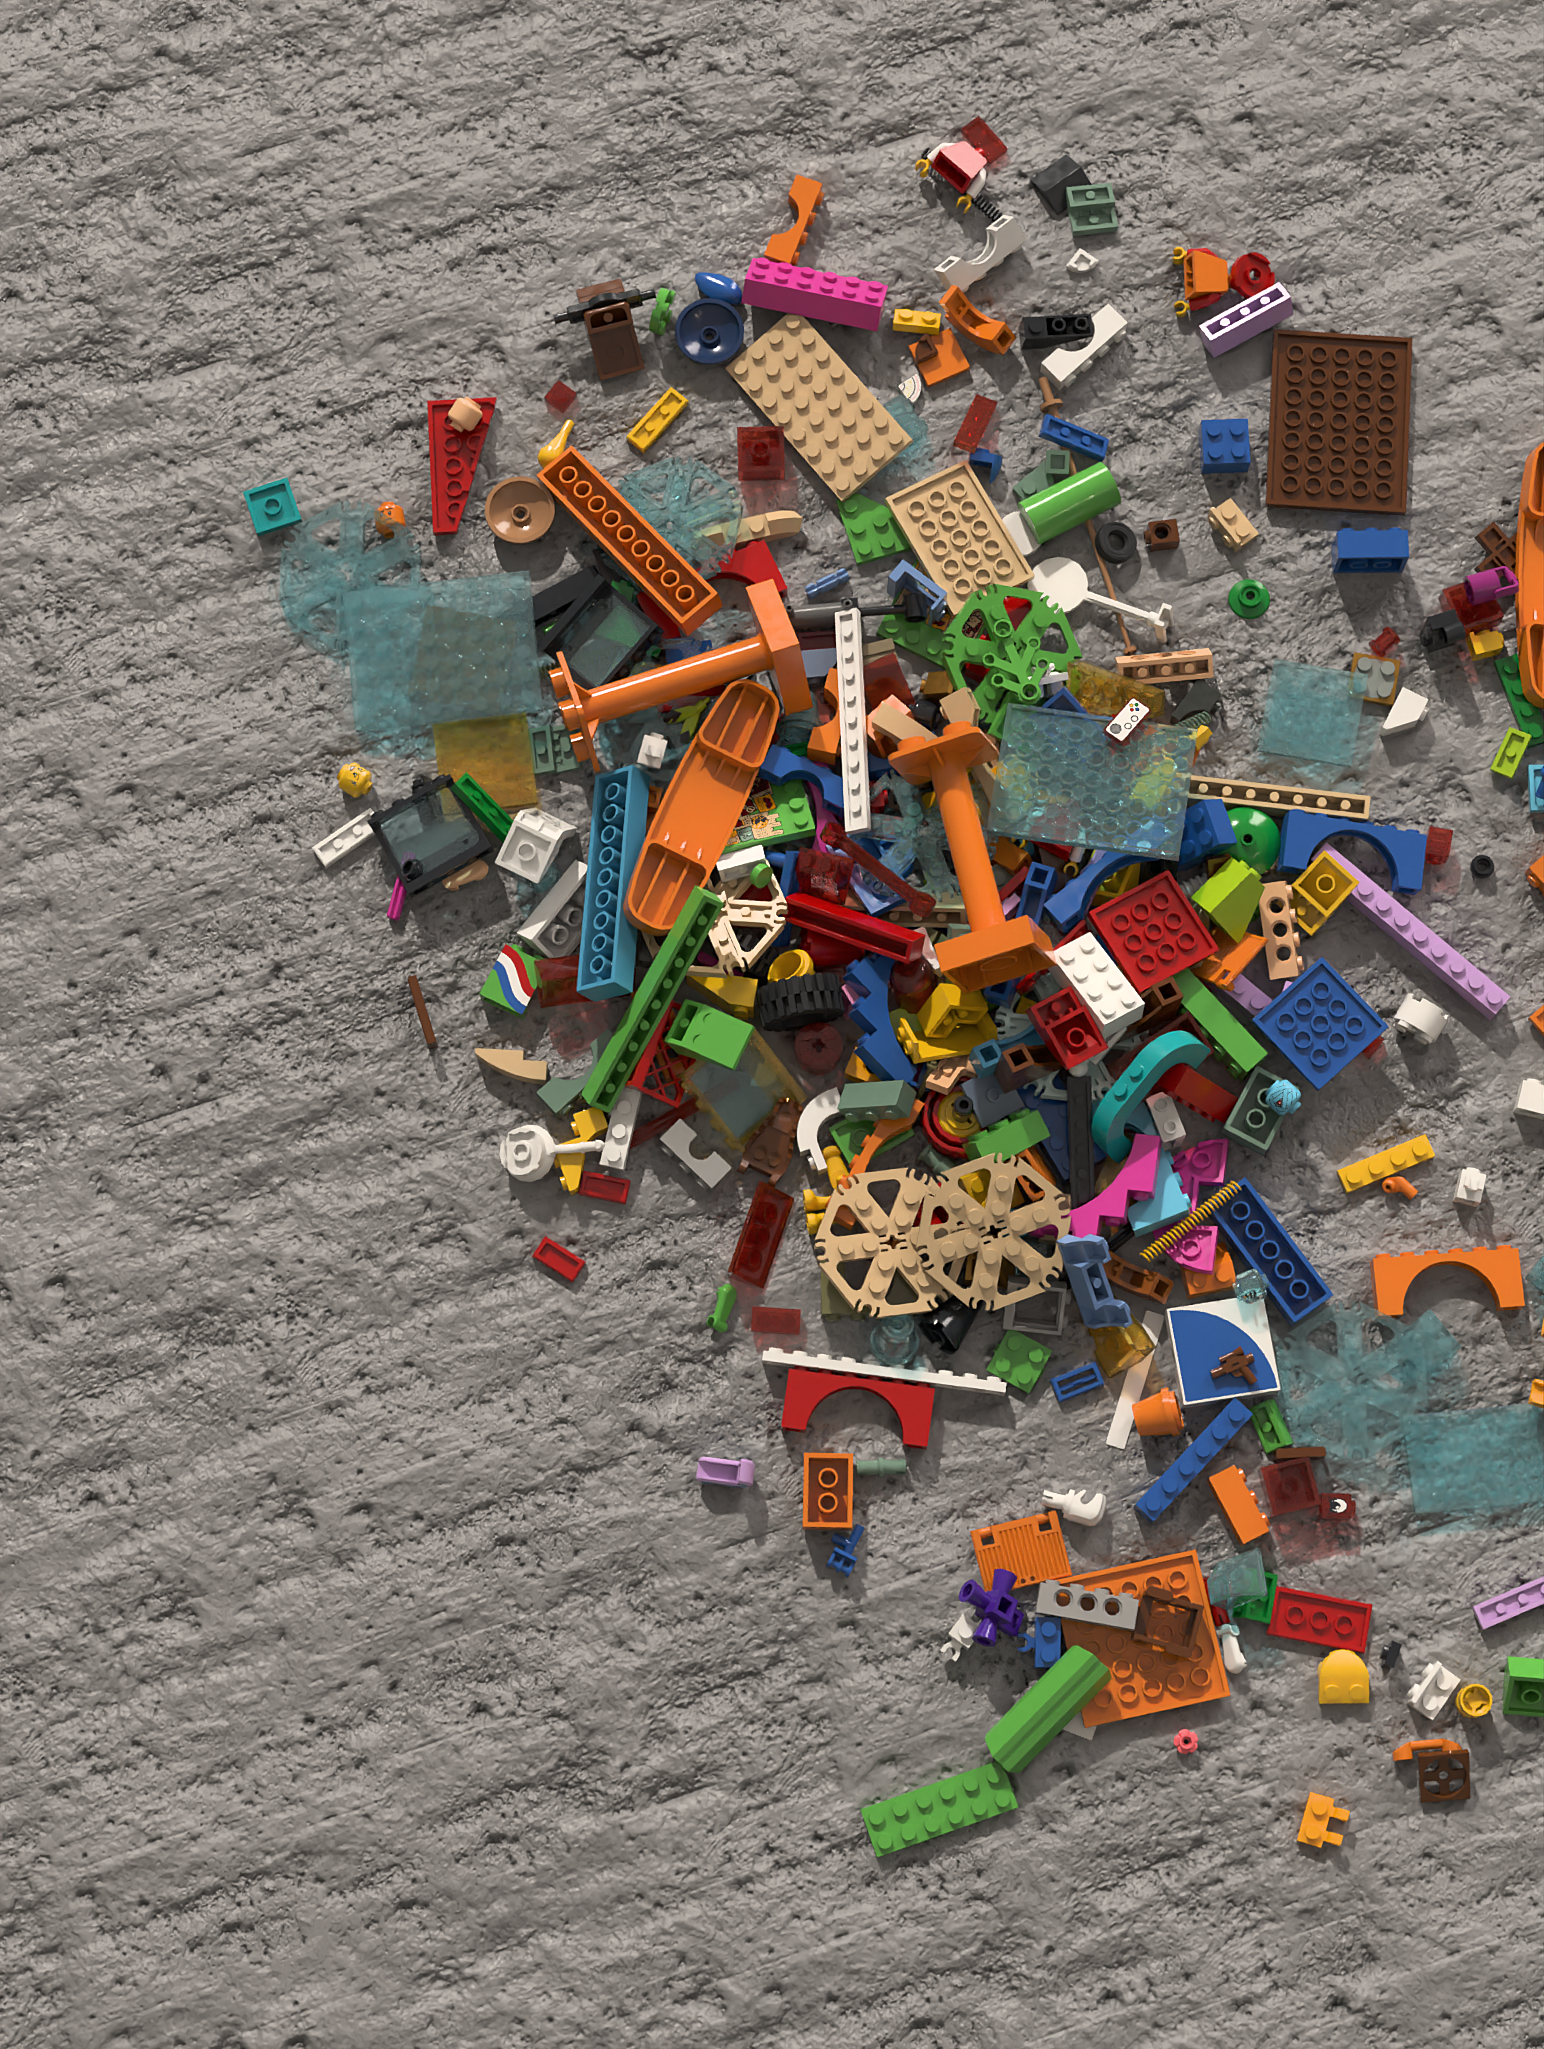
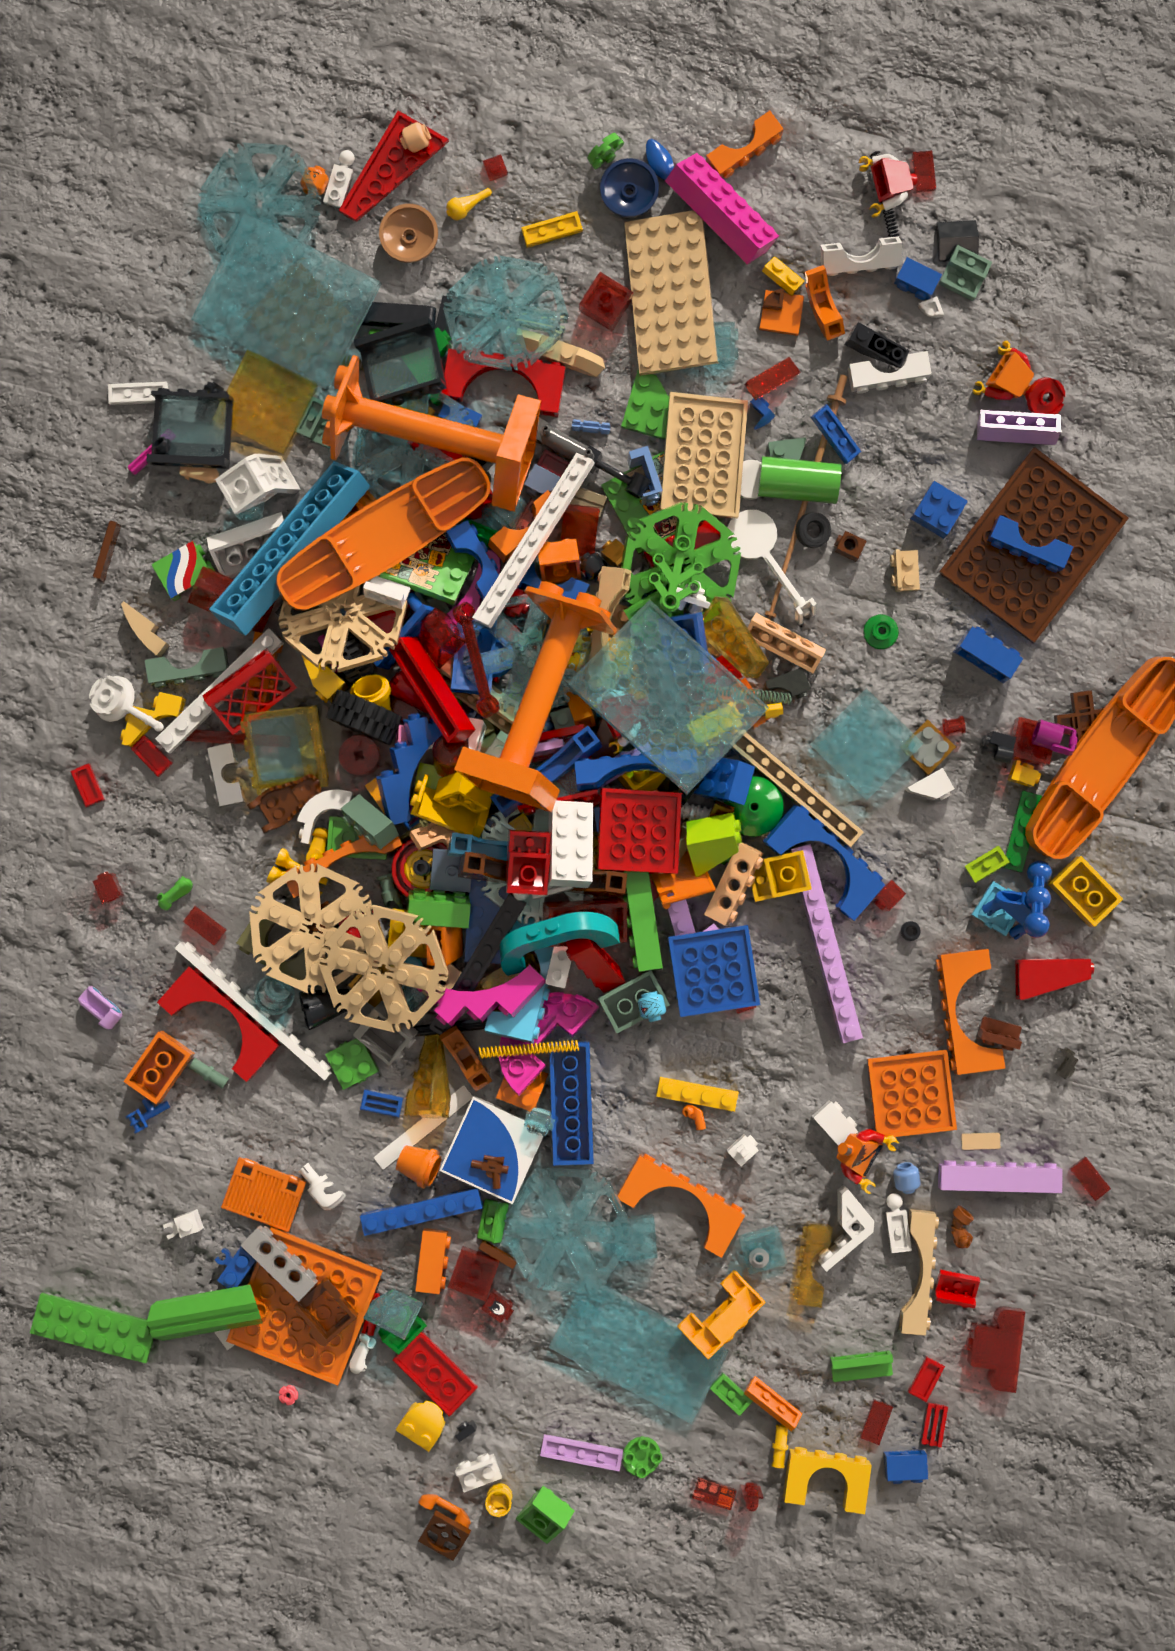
camera: 35 degrees right, 10 degrees up
(272, 506) = (240, 118): teal plate -> none
(355, 780) = (167, 355): yellow head -> none
(413, 504) = (339, 180): none -> white plate
(483, 806) = (240, 429): green plate -> none
(609, 325) = (561, 135): reddish brown piece -> none
(630, 540) = (466, 306): orange brick -> none
(650, 1346) = (108, 887): none -> clear red brick
(652, 751) = (381, 470): white brick -> none
(652, 999) = (257, 649): bright green brick -> none
(688, 714) = (425, 462): lime piece -> none
(708, 1035) = (280, 700): bright green slope -> none
(760, 1235) = (233, 860): clear red slope -> none
(761, 875) = (392, 610): bright green tile -> none
(898, 725) = (563, 570): tan slope -> none
(911, 388) = (746, 323): white tile -> none
(994, 1607) = (215, 1221): dark purple brick -> none
(1050, 243) = (917, 279): none -> blue brick
(1057, 461) = (811, 444): sand green plate -> none
(1089, 1281) = (430, 1036): medium blue bracket -> none
(1127, 721) = (722, 669): tile -> none
(1307, 427) = (1006, 535): none -> blue arch
(1316, 1819) = (338, 1505): light orange plate -> none
(1421, 1019) = (790, 1011): white brick -> none

